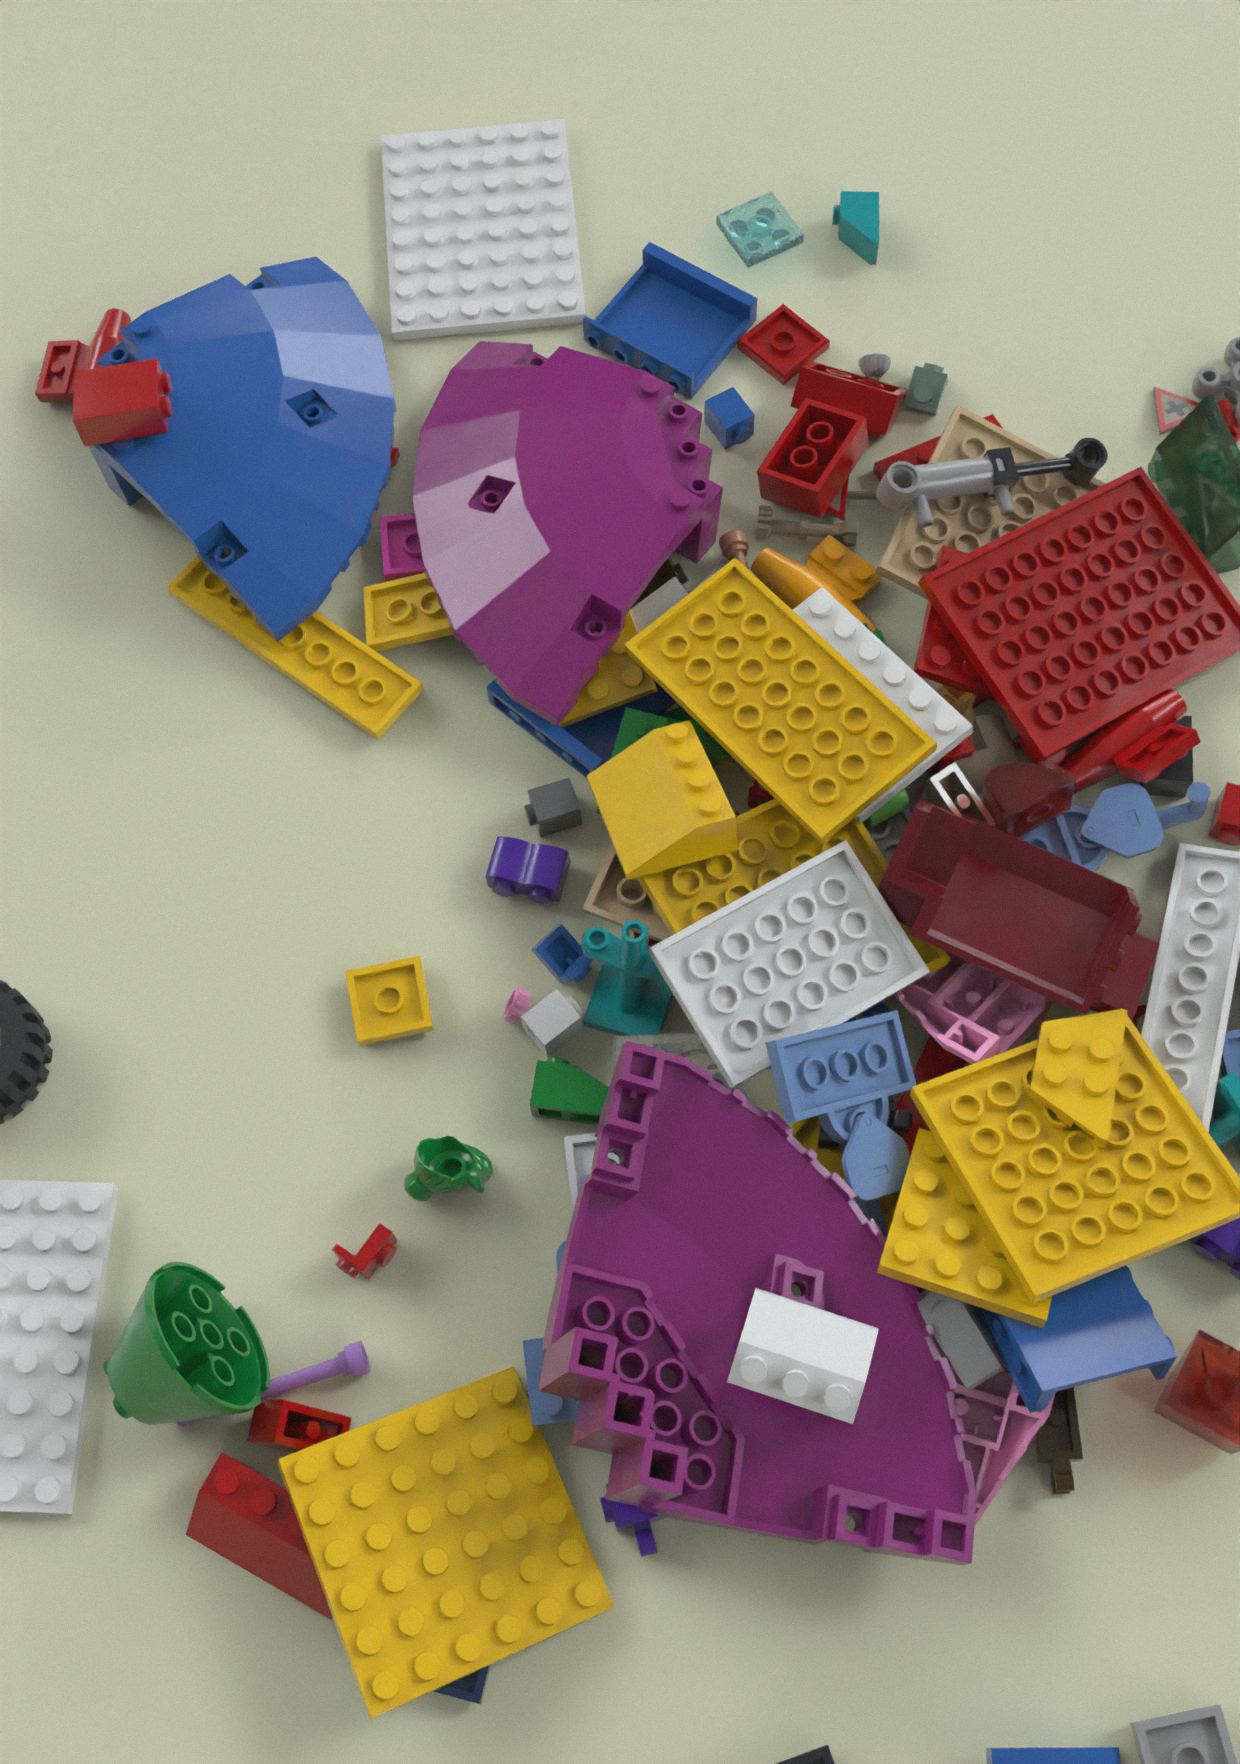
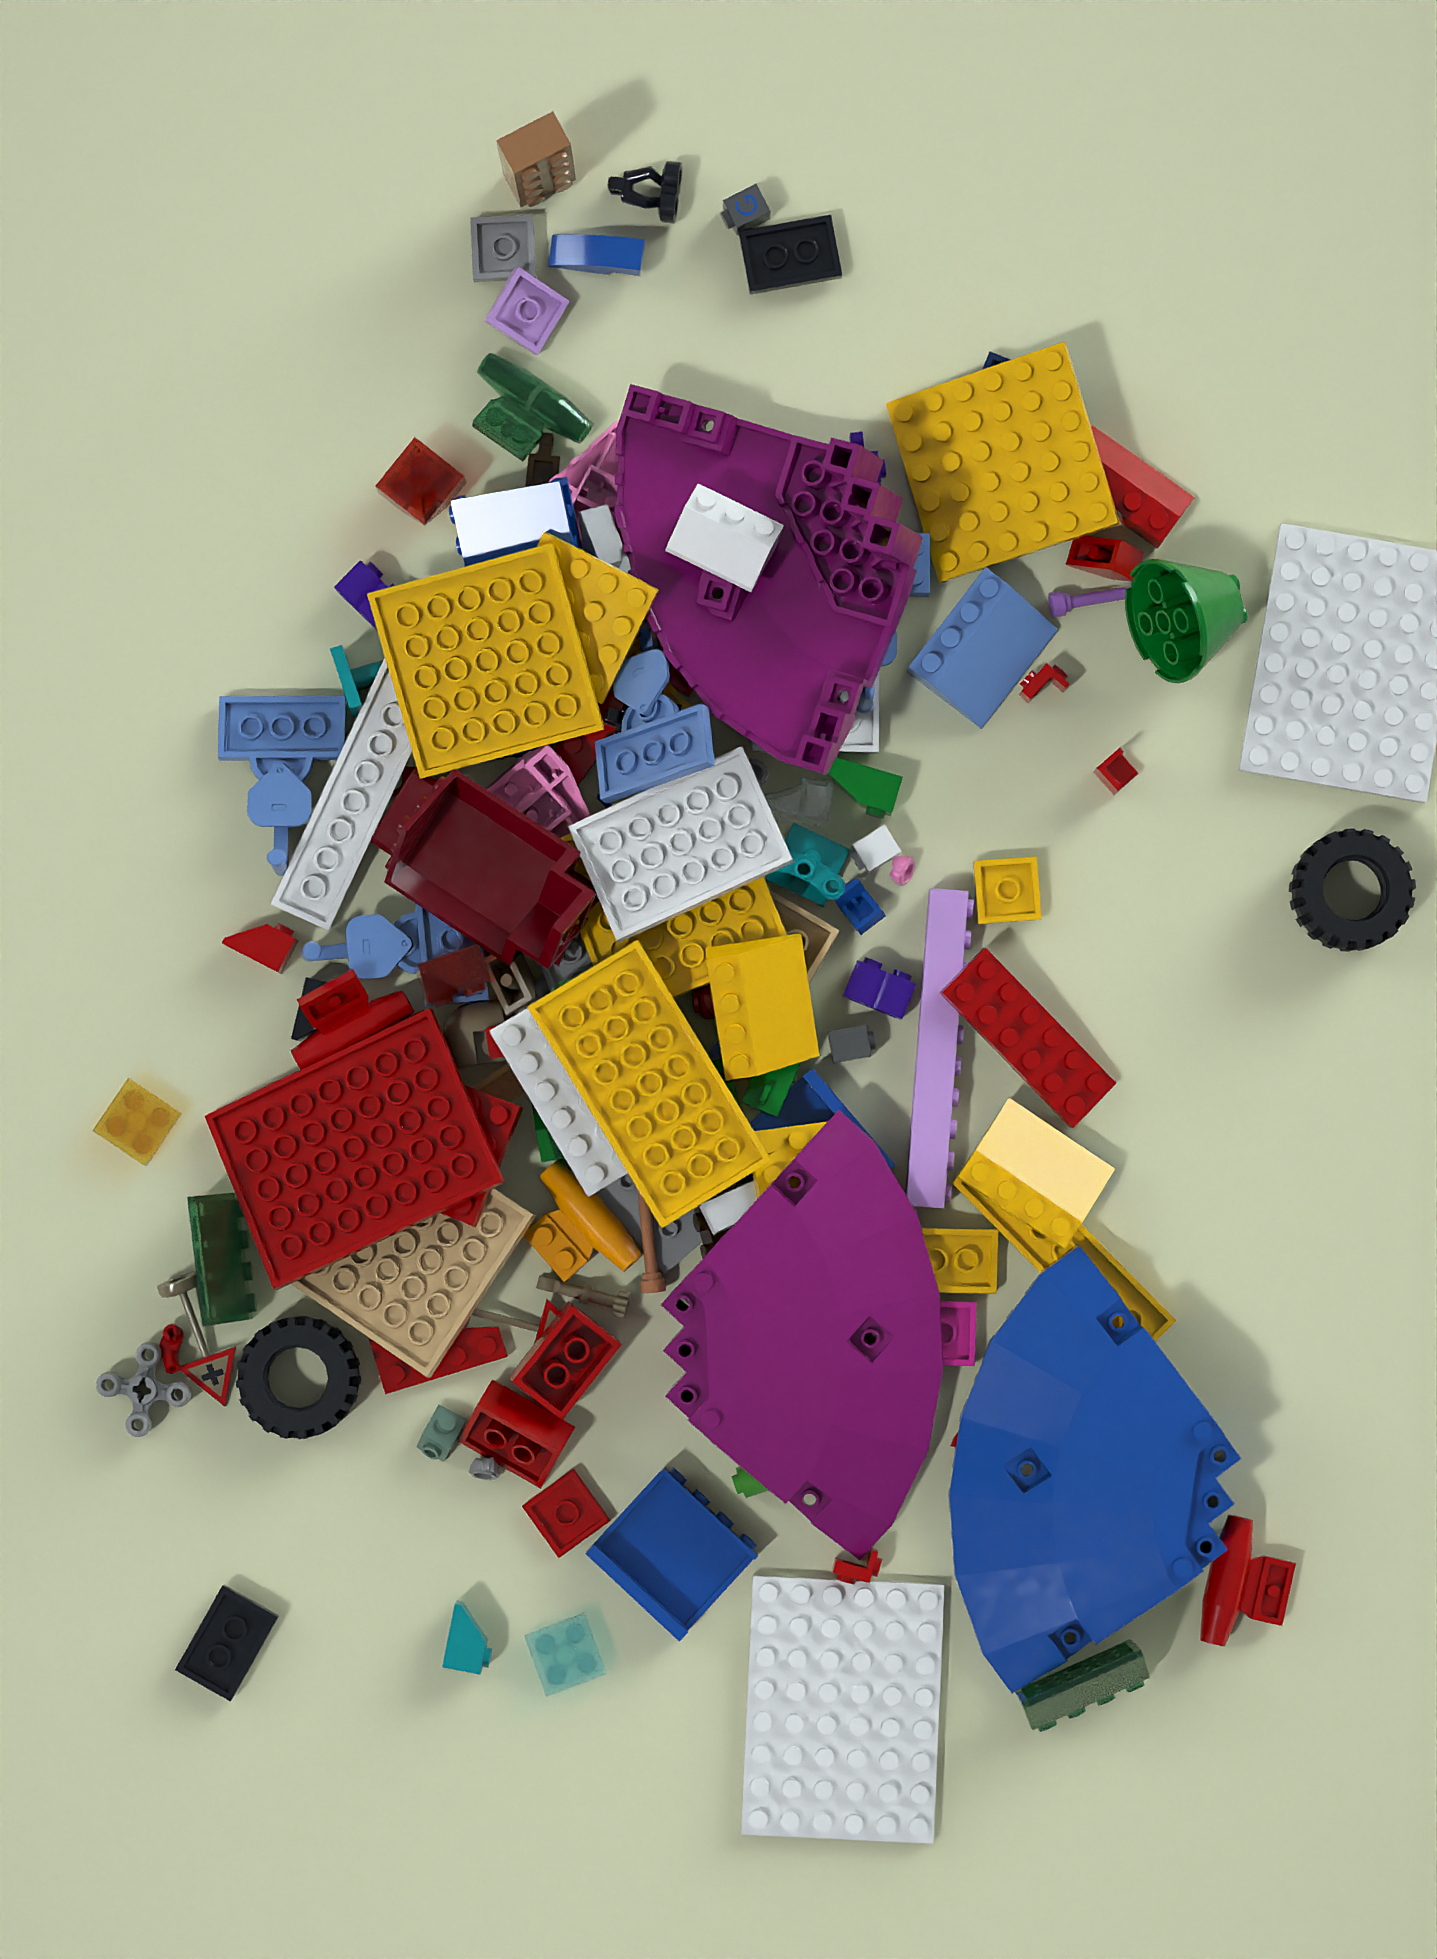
camera: 175 degrees left, 20 degrees up
(121, 402) = (1199, 1466): red brick -> none
(242, 248) = (1083, 1684): none -> clear green slope
(268, 1157) = (1115, 771): none -> red panel
(329, 695) = (1036, 1173): none -> yellow slope
(351, 839) = (1028, 1037): none -> red plate
(445, 1167) = (972, 739): green hair -> none
(449, 1288) = (982, 648): none -> medium blue slope
(454, 824) = (936, 1051): none -> lavender brick
(481, 328) = (850, 1572): none -> red bracket
(729, 418) = (633, 1425): blue brick -> none
(991, 475) = (419, 1293): light grey piece -> none
(1058, 434) = (341, 1369): none -> black tyre
(1079, 1070) = (470, 724): yellow wing -> none
(1092, 195) = (227, 1642): none -> black plate
(1102, 1520) = (525, 409): none -> clear green plate
(1134, 1667) = (526, 310): none -> lavender plate

